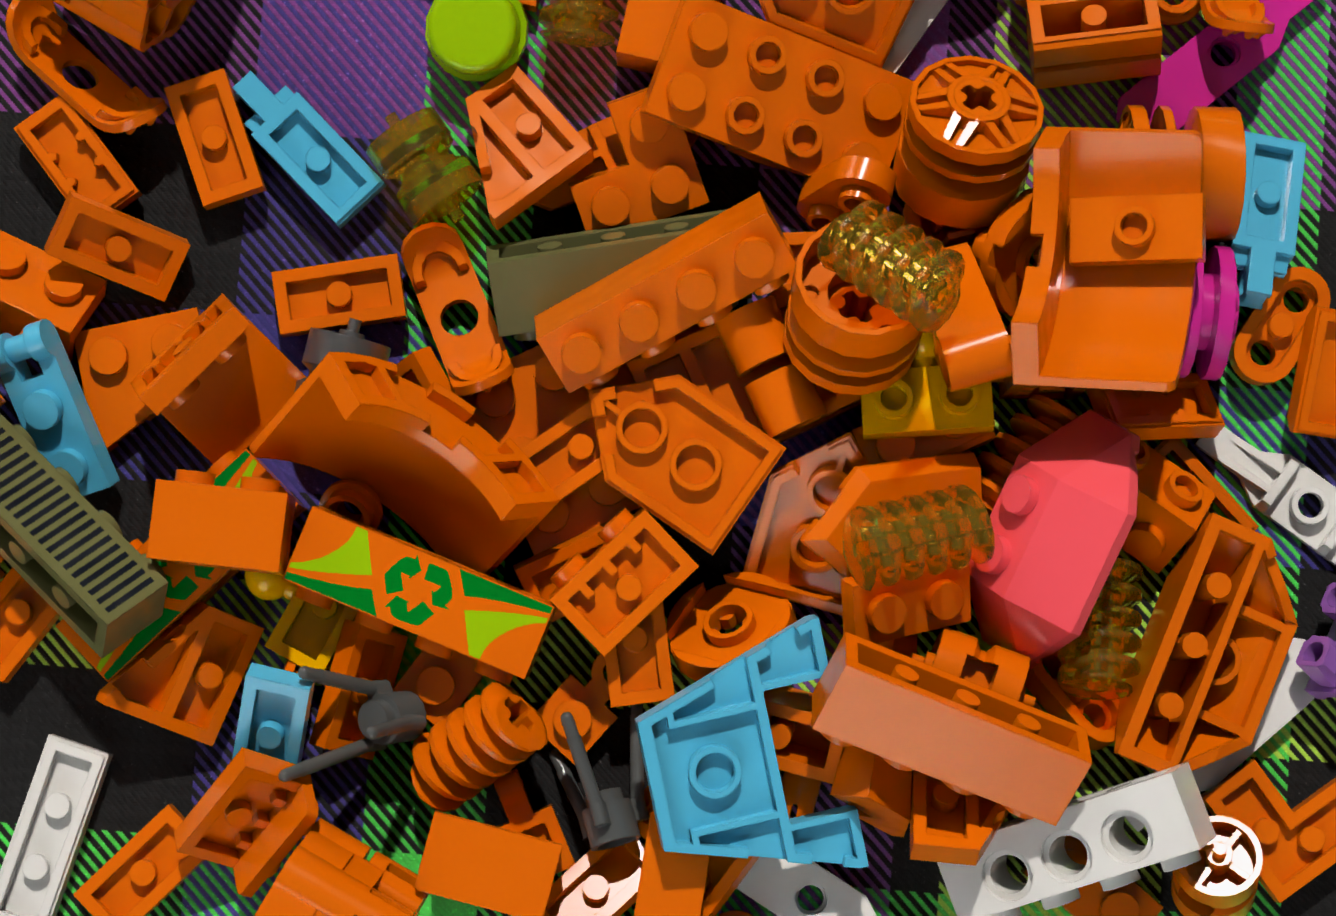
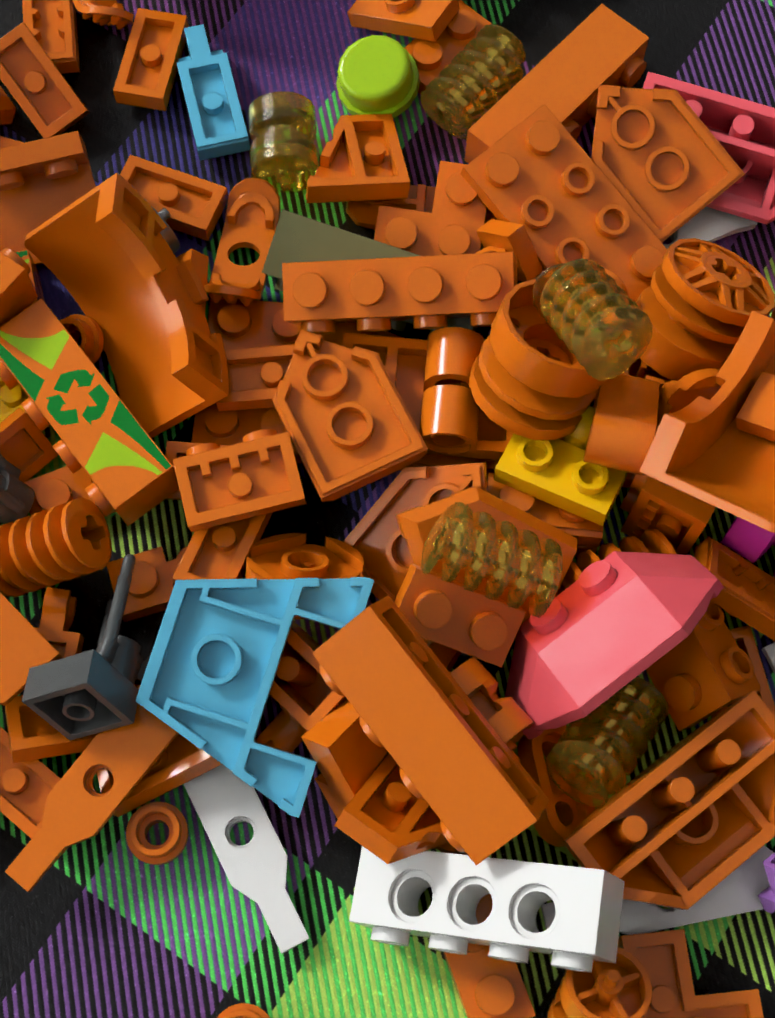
camera: 30 degrees right, 15 degrees down
(608, 871) = (81, 695): none -> dark grey piece
(731, 172) = (511, 237): none -> orange tile

